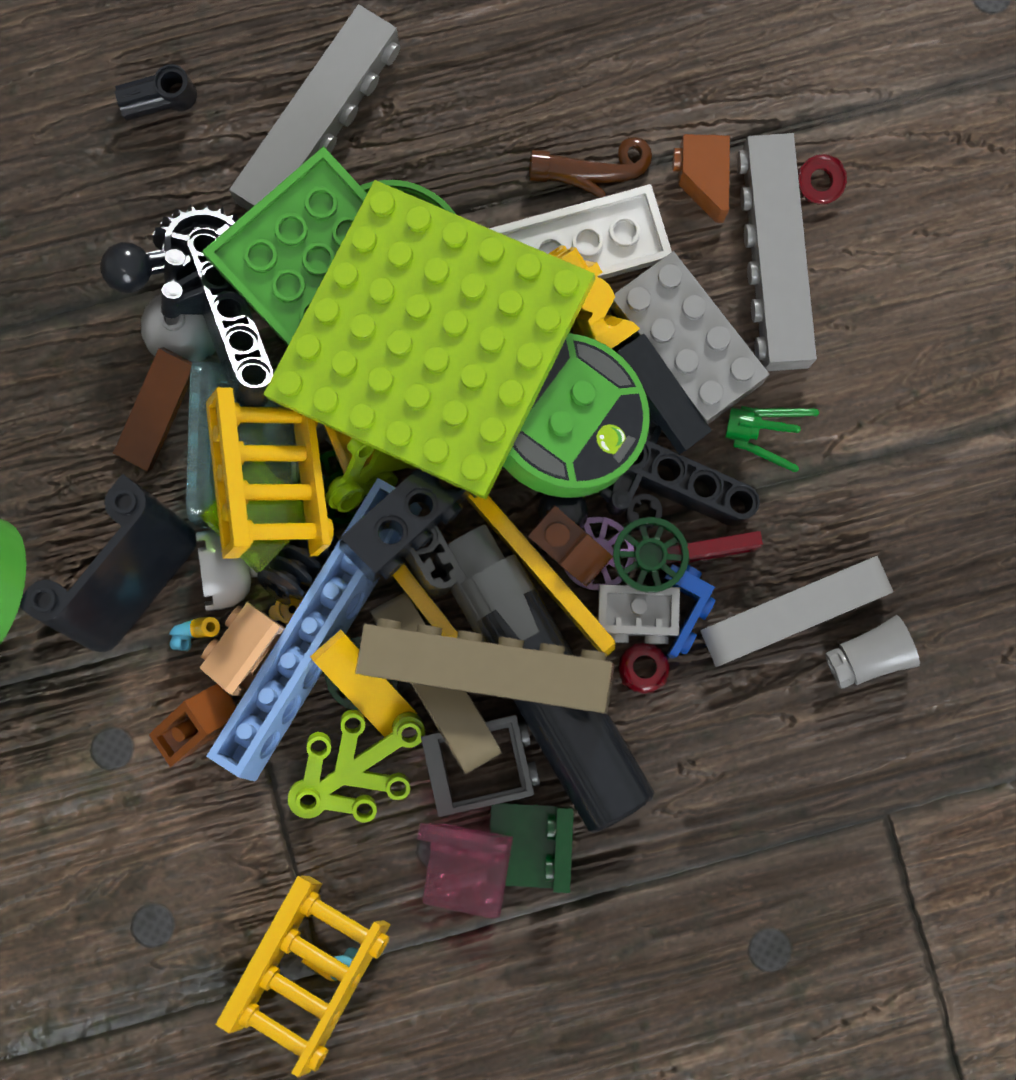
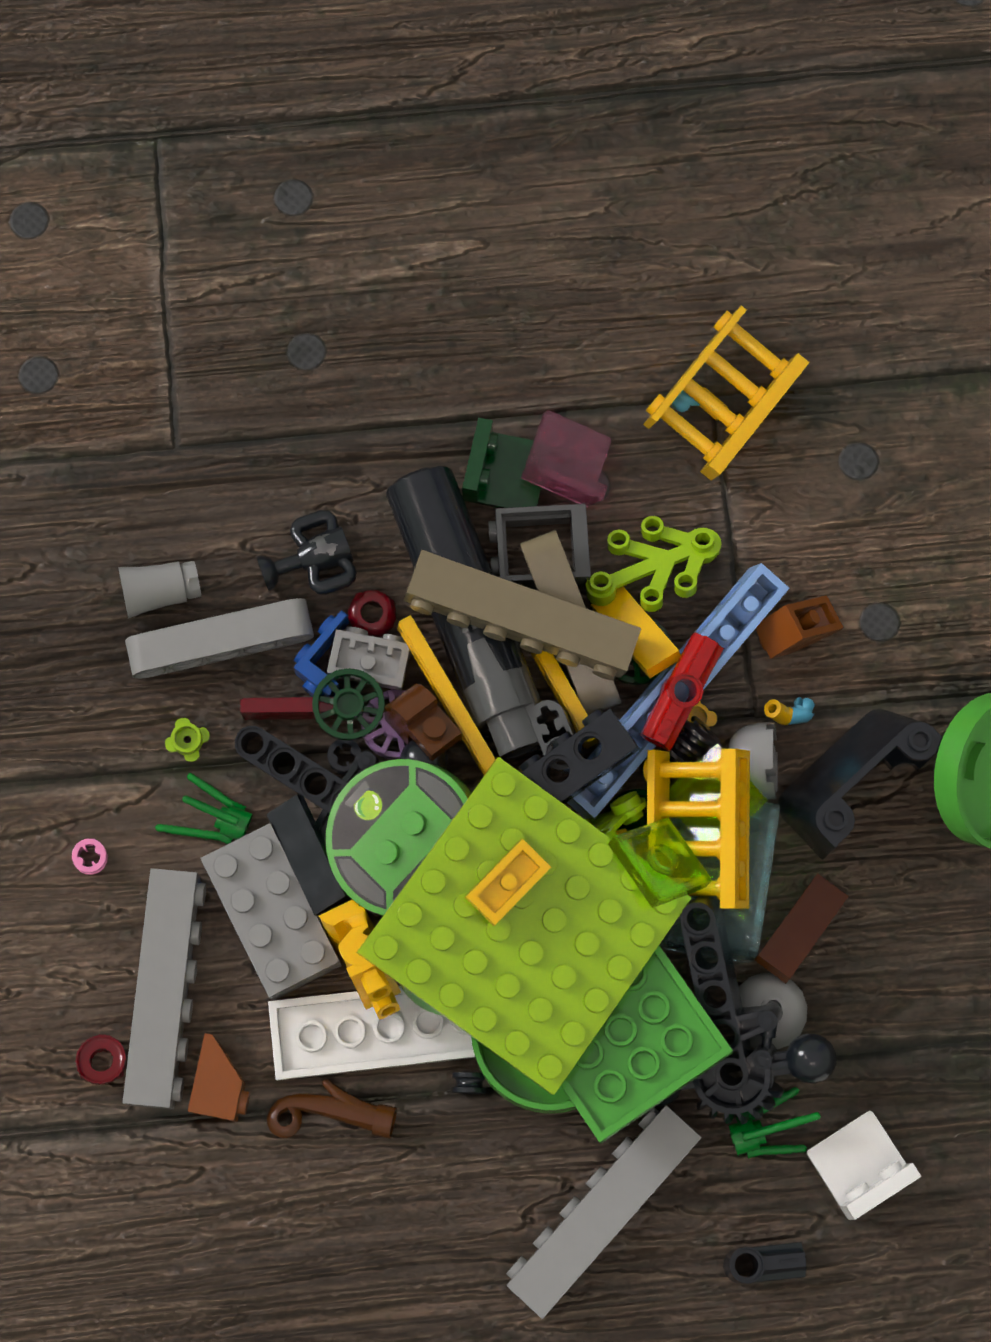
camera: 170 degrees left, 5 degrees down
(69, 192) = (861, 1166): none -> white bracket
(179, 201) = (751, 1135): none -> green plant
(242, 649) = (744, 684): light nougat slope -> none
(296, 642) = (693, 670): none -> red piece
(299, 421) = (660, 862): none -> clear neon green tile
(452, 362) = (508, 882): none -> yellow plate
(466, 208) = (469, 1083): none -> black bush
(717, 716) = (314, 555): none -> black piece
(817, 499) = (183, 729): none -> lime plate
(886, 363) = (80, 863): none -> bright pink bush

